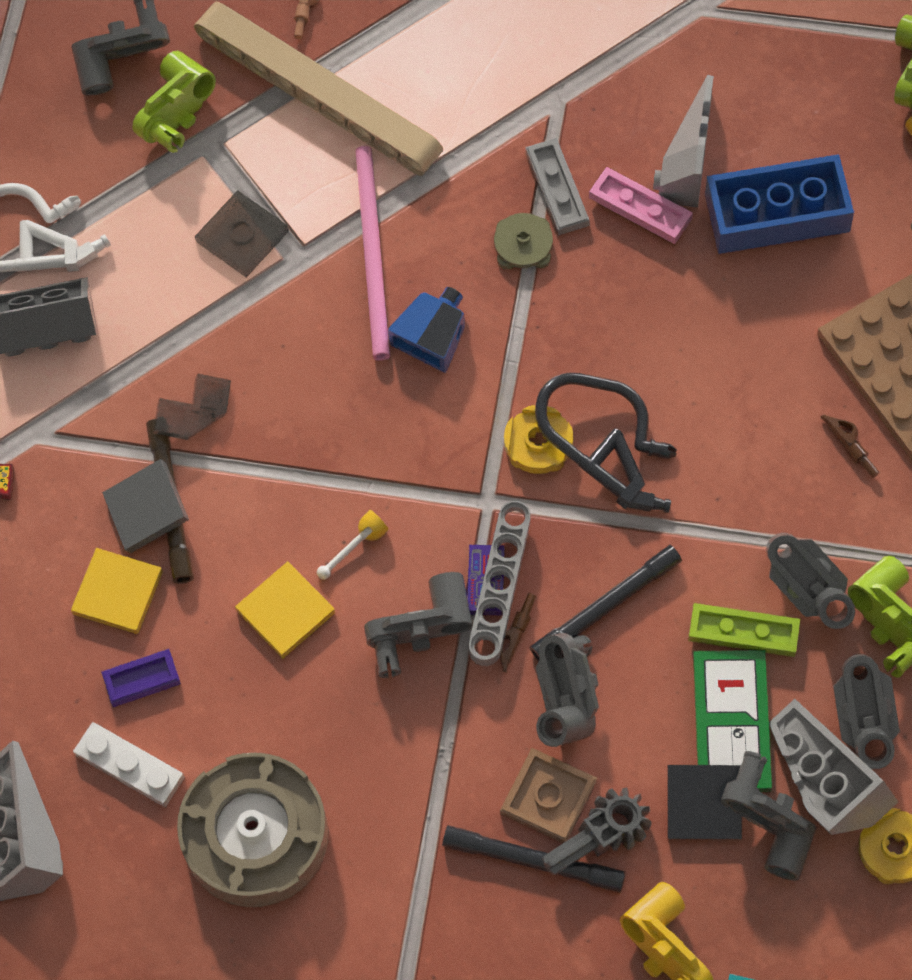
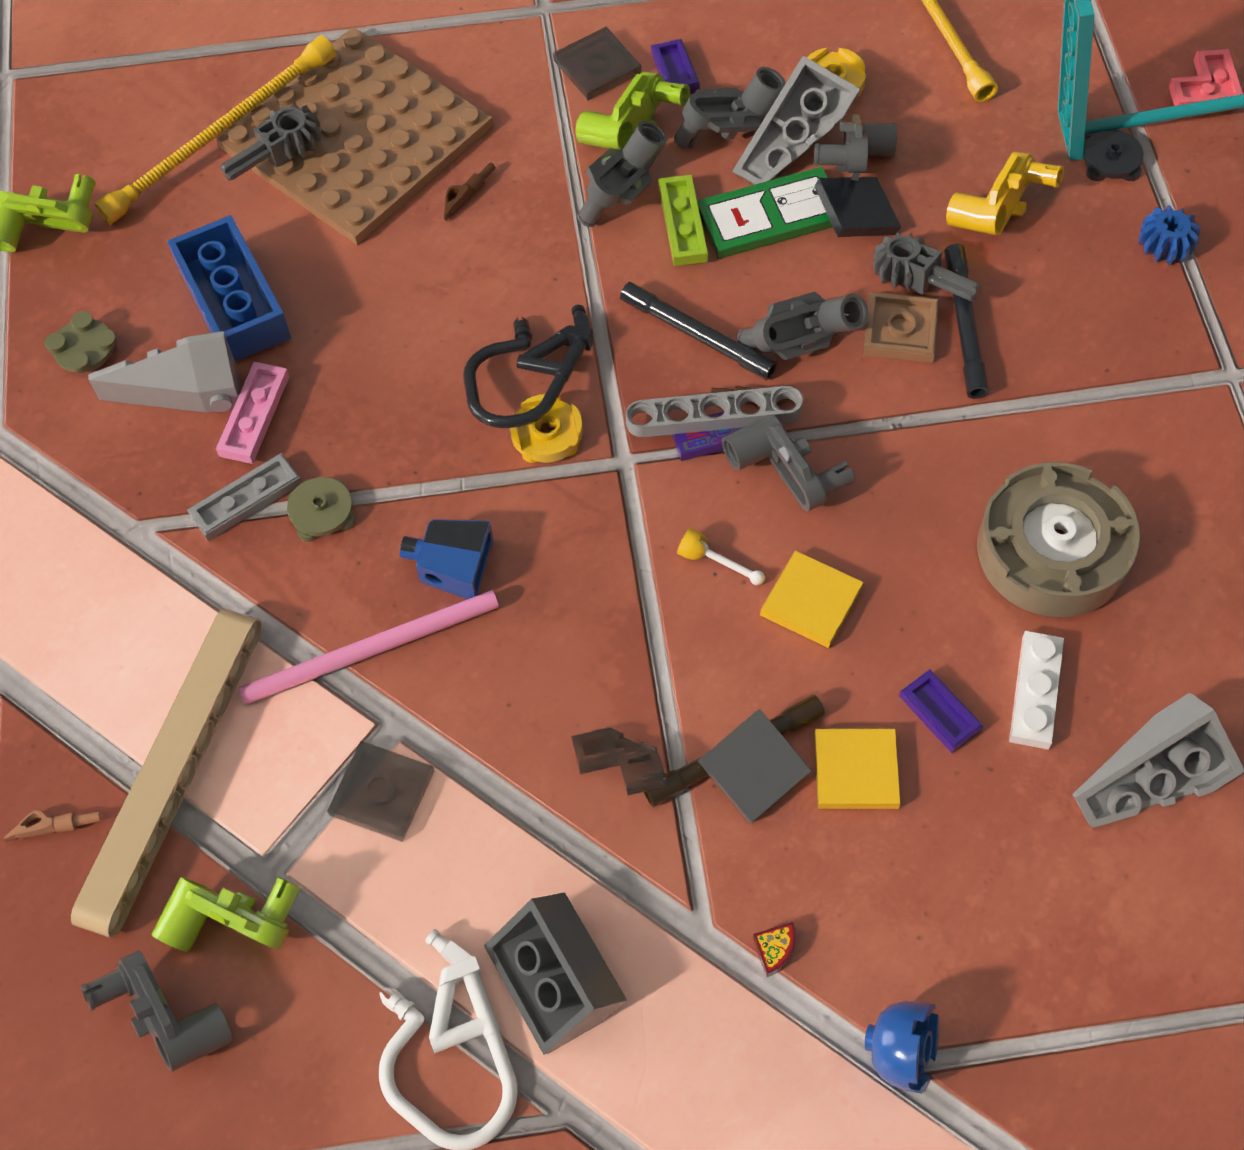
camera: 110 degrees left, 5 degrees down
(764, 82) = (81, 344): none -> olive piece

